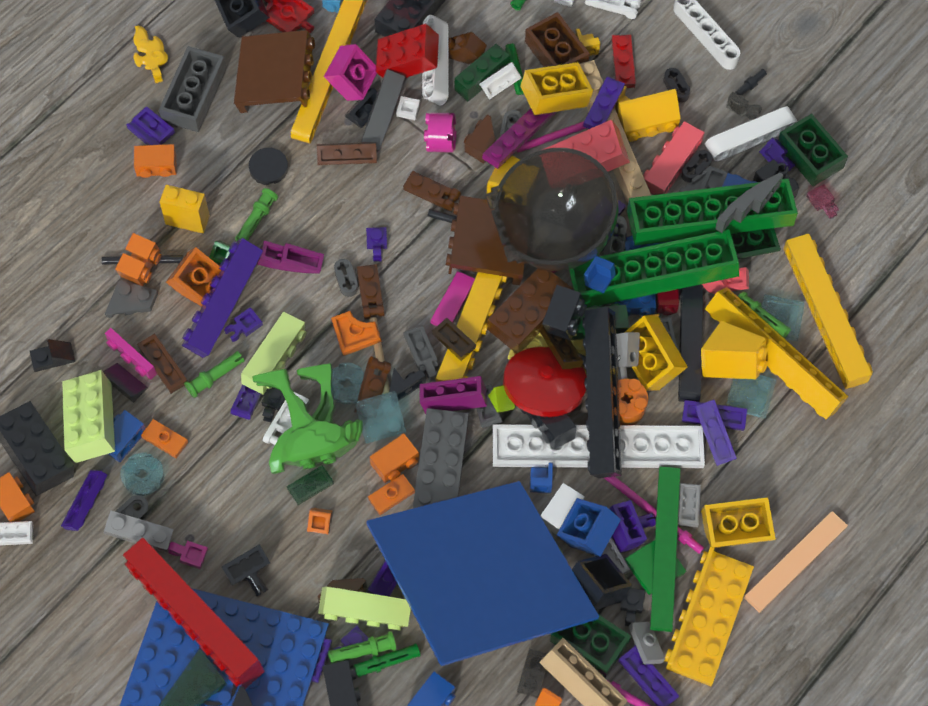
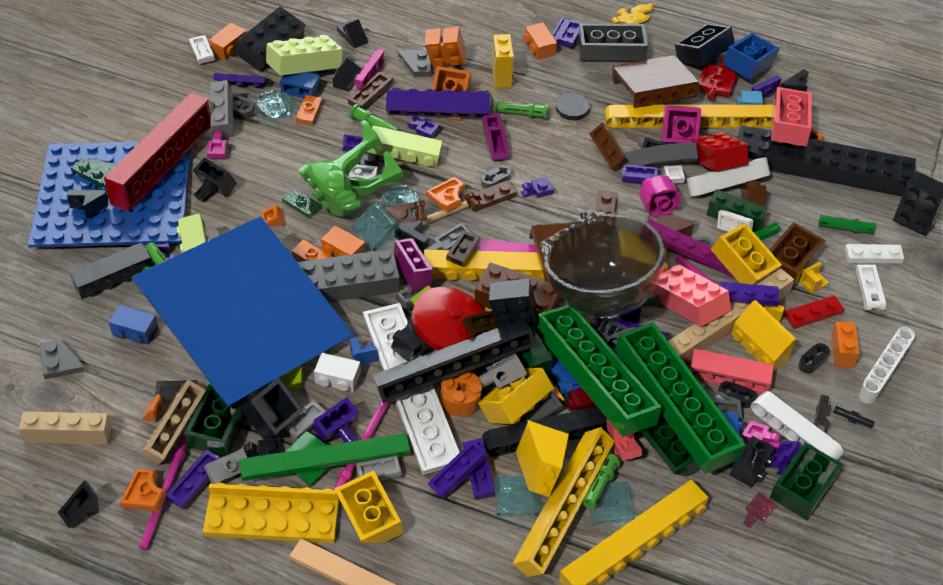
camera: 70 degrees right, 15 degrees down
(395, 139) = (638, 174): none -> dark purple plate
(588, 527) = (320, 387): blue brick -> none
(599, 274) = (564, 319): blue panel -> none
(674, 53) = (844, 344): none -> orange brick
(748, 166) = (761, 432): none -> dark pink plate
(752, 199) = (702, 413): dark grey slope -> none

